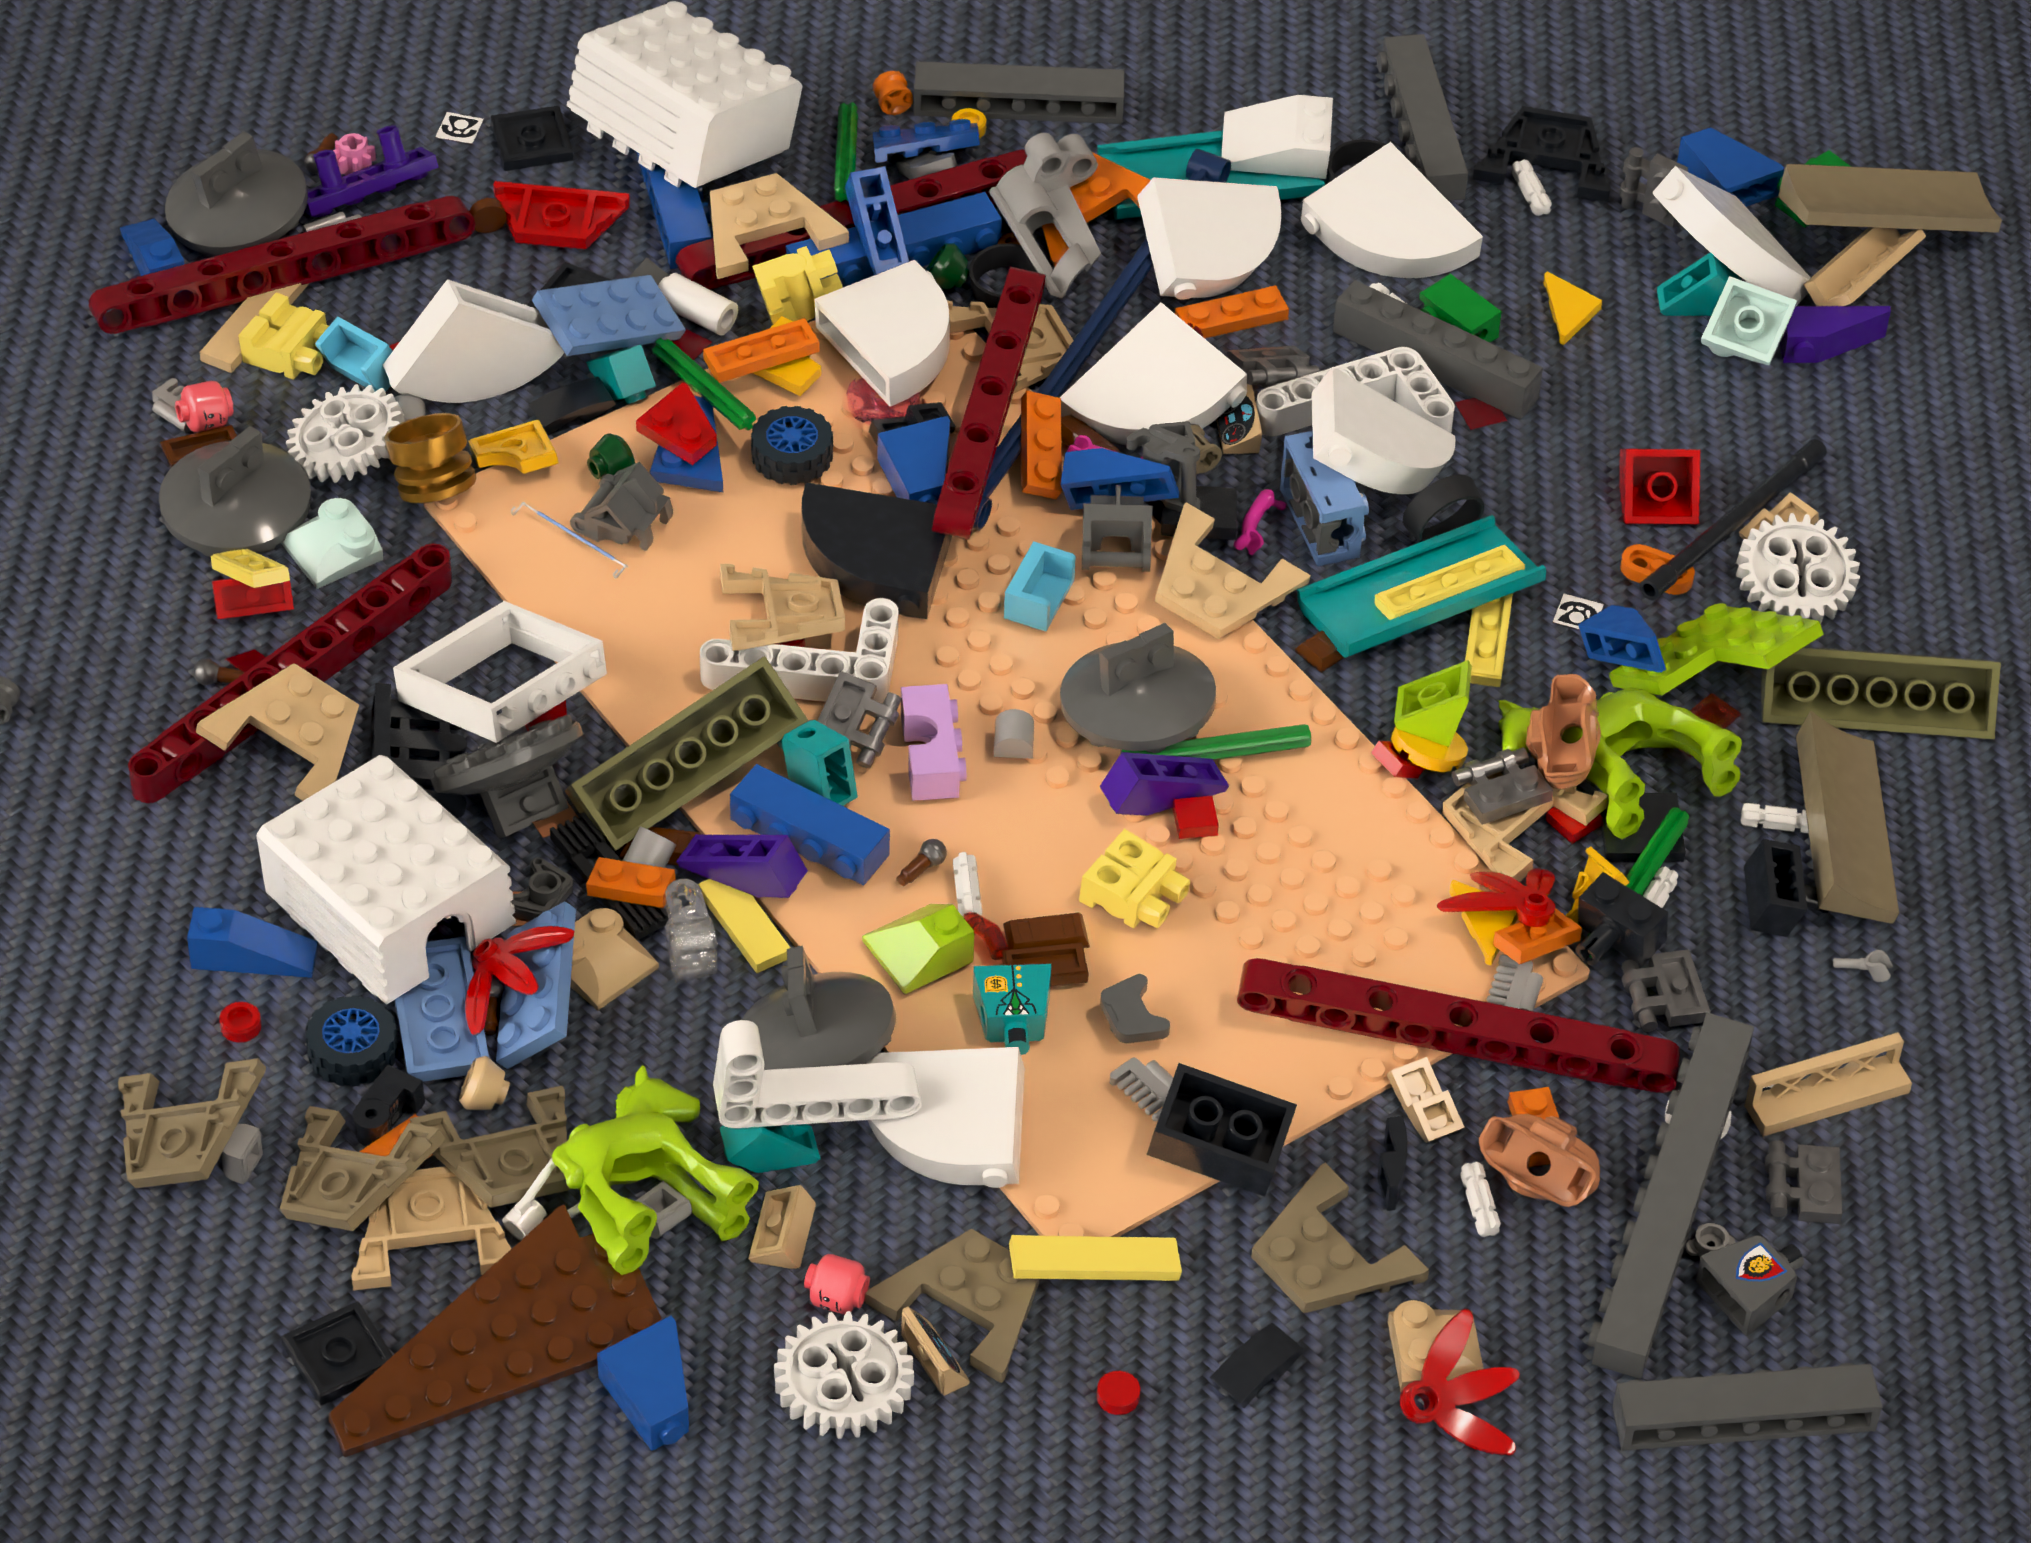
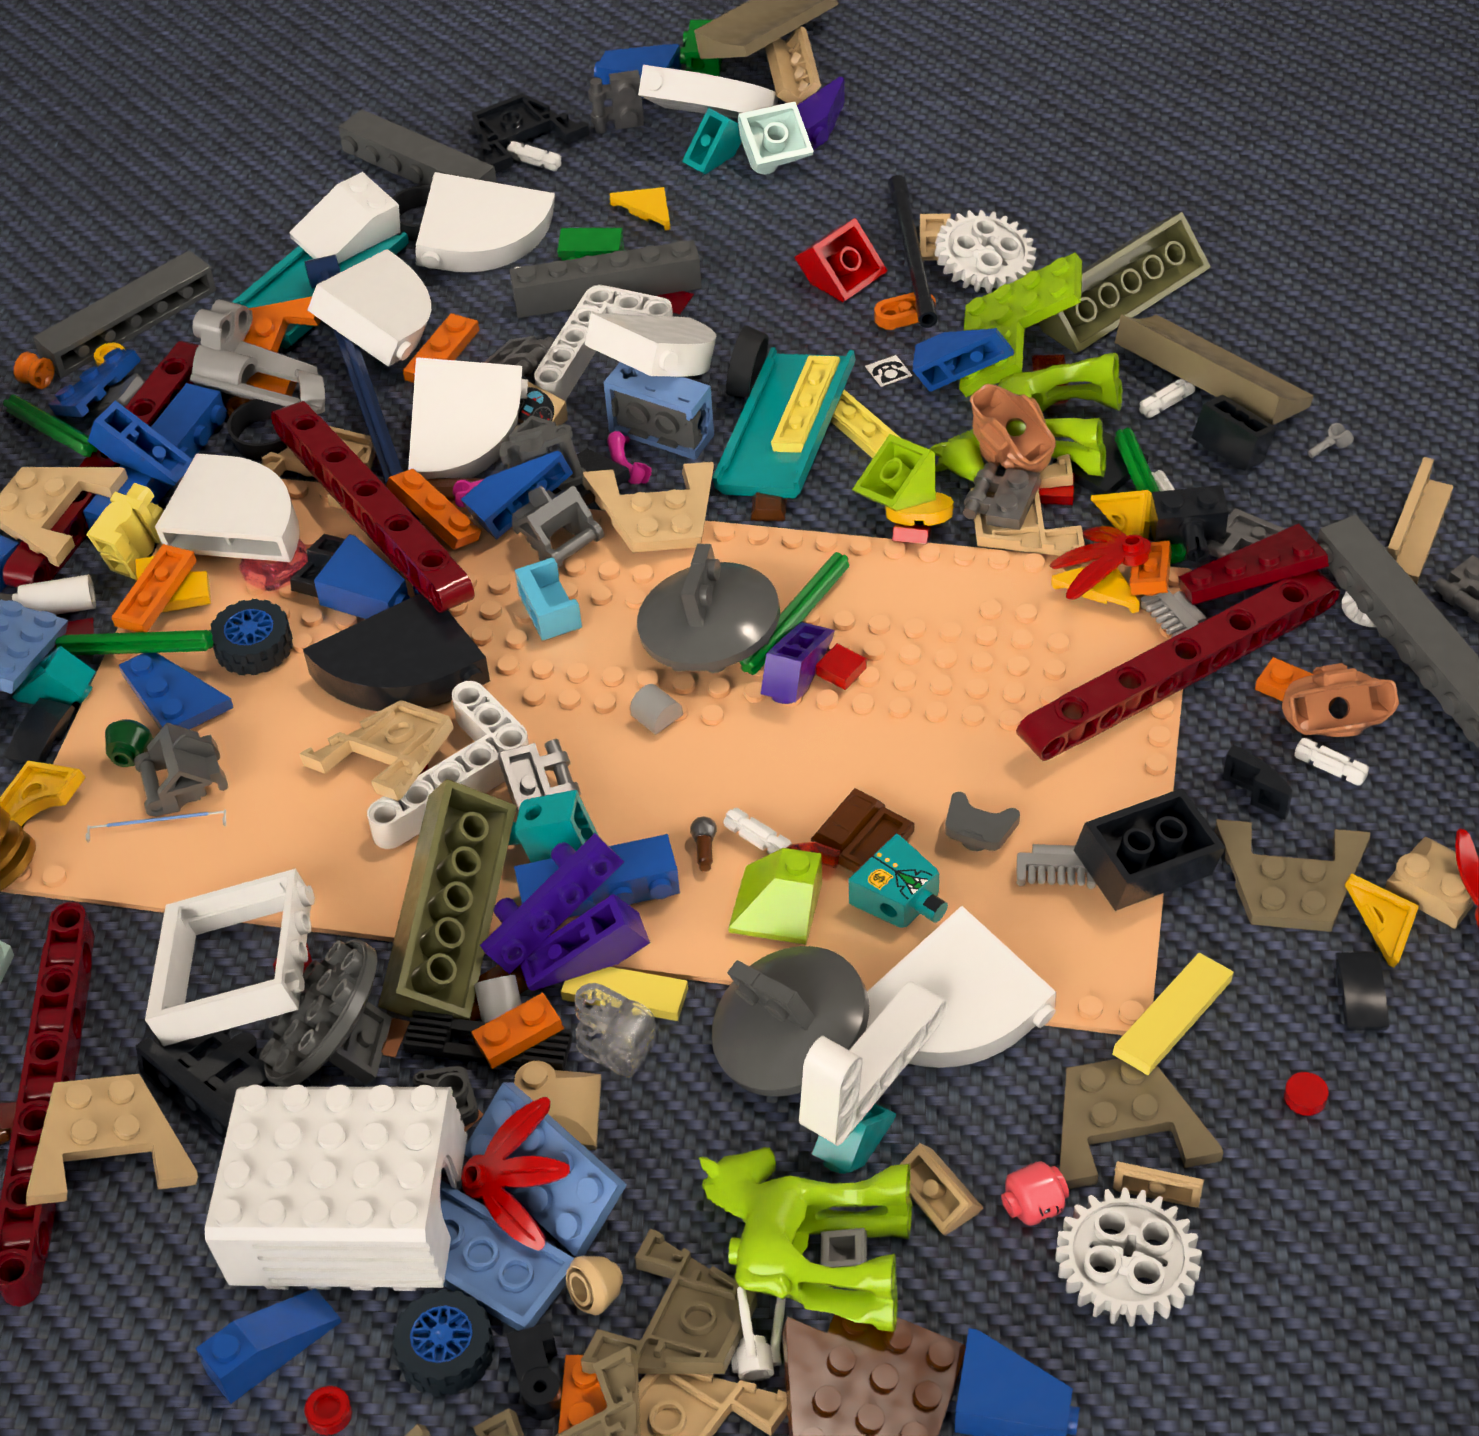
camera: 40 degrees left, 0 degrees up
(679, 425) = (155, 681): red wing -> none
(745, 809) = (552, 903): none -> dark purple plate
(929, 718) = (633, 768): lavender arch -> none
(949, 266) = (215, 442): dark green cone -> none
(1133, 880) = (863, 739): light yellow hips -> none
(1353, 1335) = (1385, 915): none -> yellow tile
(1423, 1100) = (1214, 730): tan slope -> none
(1632, 1005) = (1261, 563): none -> dark red wing

